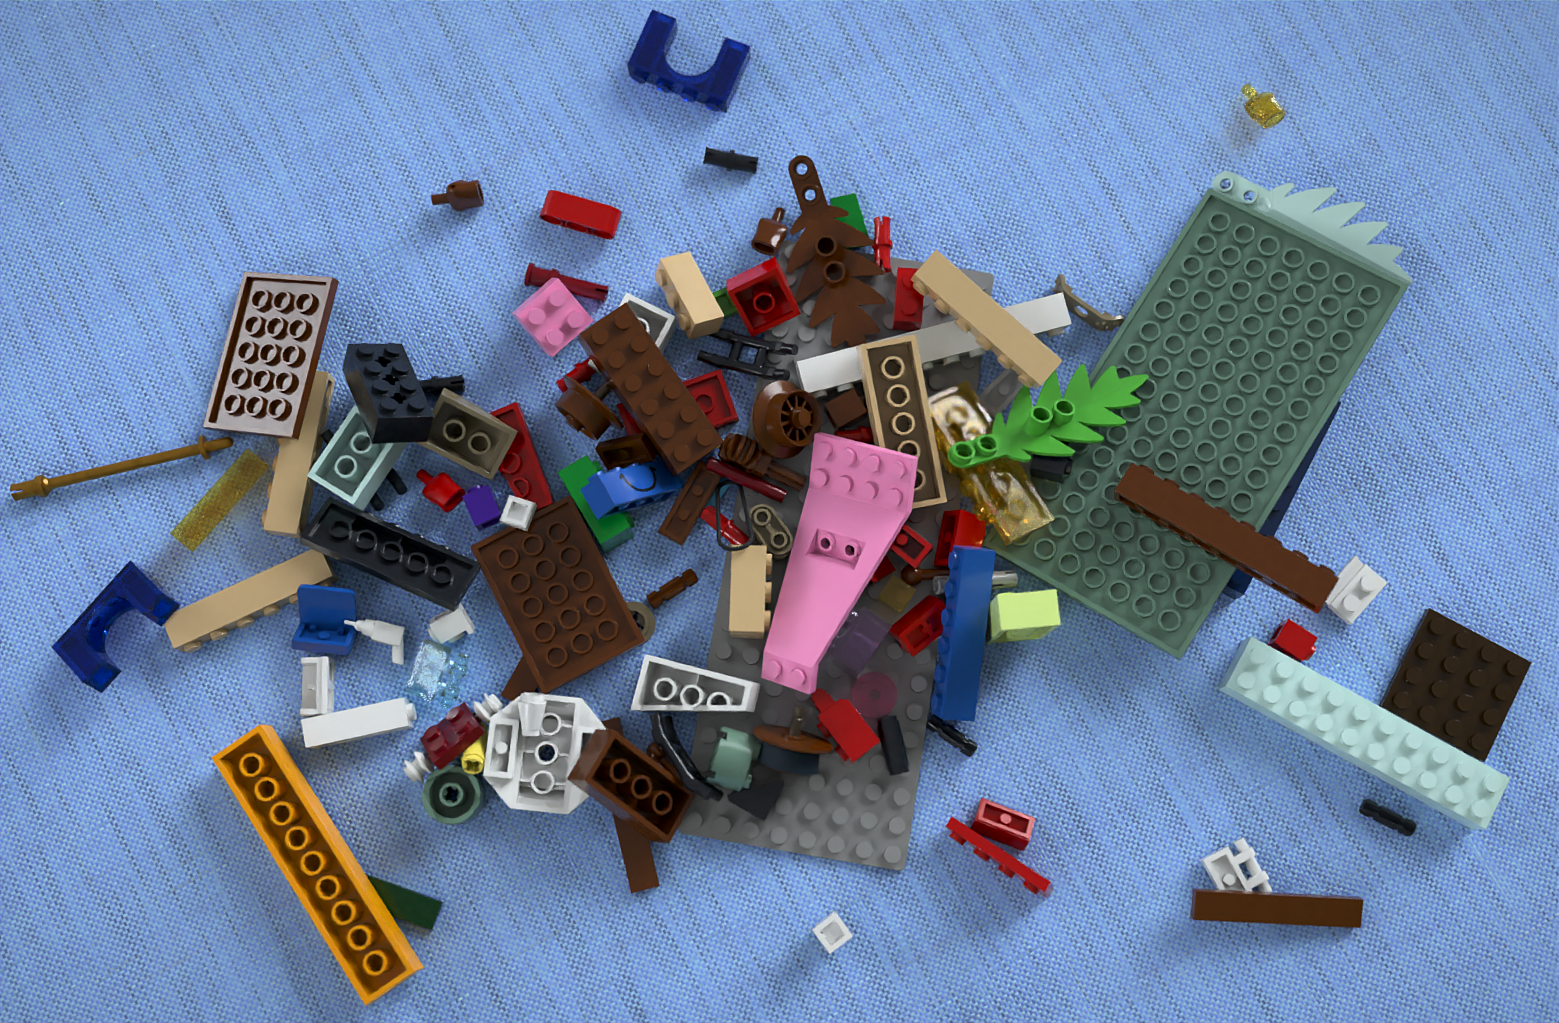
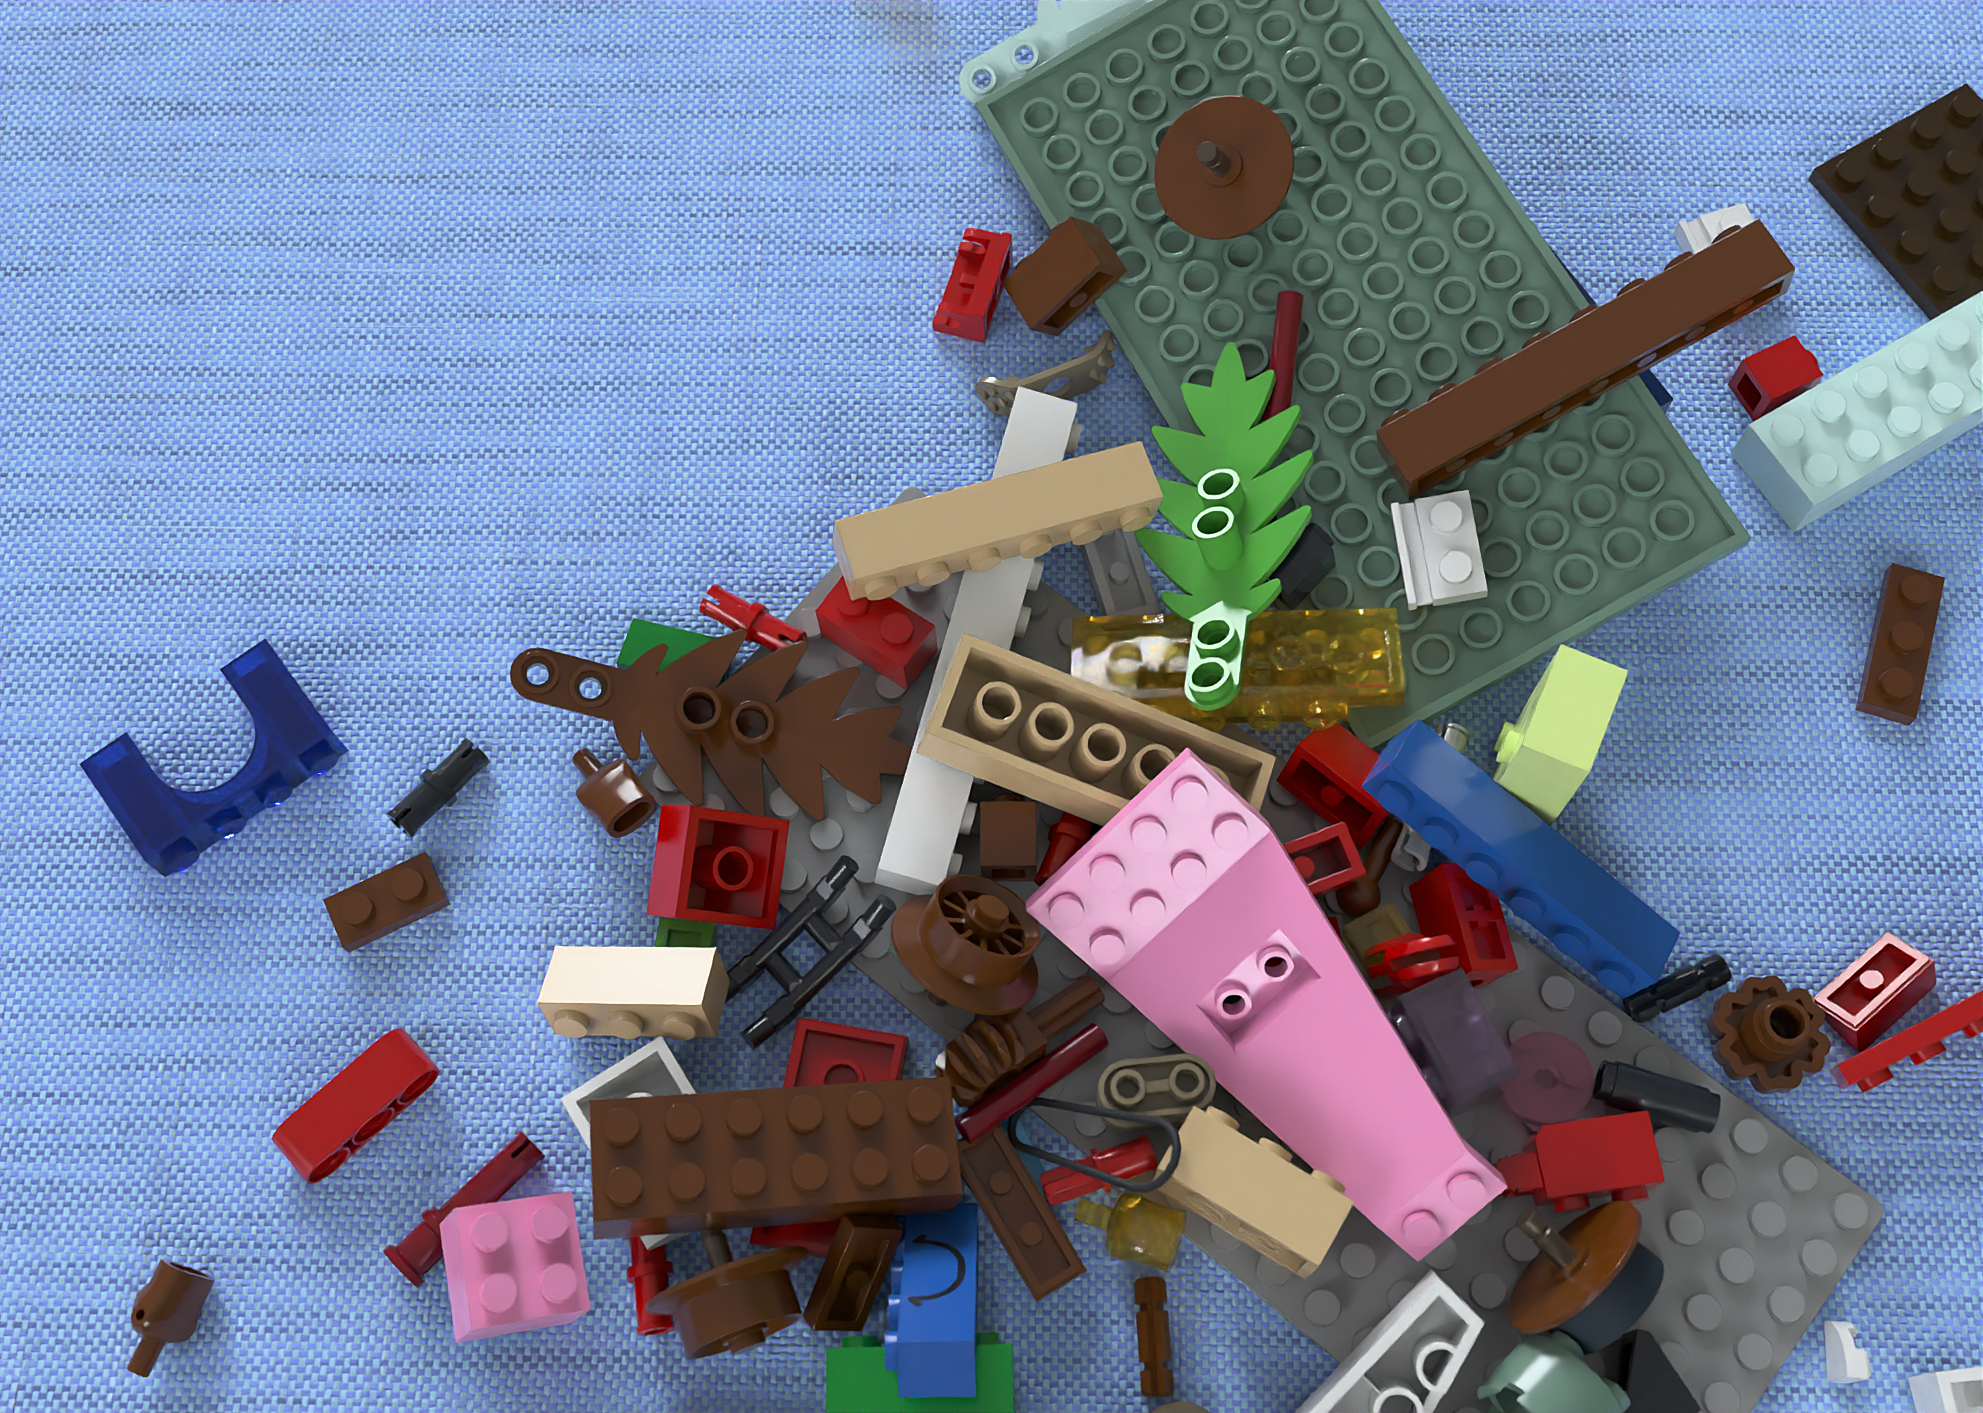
camera: 55 degrees left, 10 degrees down
(670, 171) = (386, 902): none -> reddish brown plate
(711, 558) = (1137, 1229): none -> clear yellow piece
(829, 877) = (1843, 1360): none -> white tile
(885, 606) = (1410, 962): none -> red arm
(967, 787) = (1768, 1034): none -> reddish brown plant
(1095, 523) = (1439, 550): none -> white plate
(1112, 245) = (975, 285): none -> red hinge
(1137, 281) = (1064, 276): none -> reddish brown brick
(1154, 403) = (1284, 351): none -> dark red piece
(1186, 763) = (1900, 644): none -> reddish brown plate
(1228, 321) = (1224, 167): none -> reddish brown piece

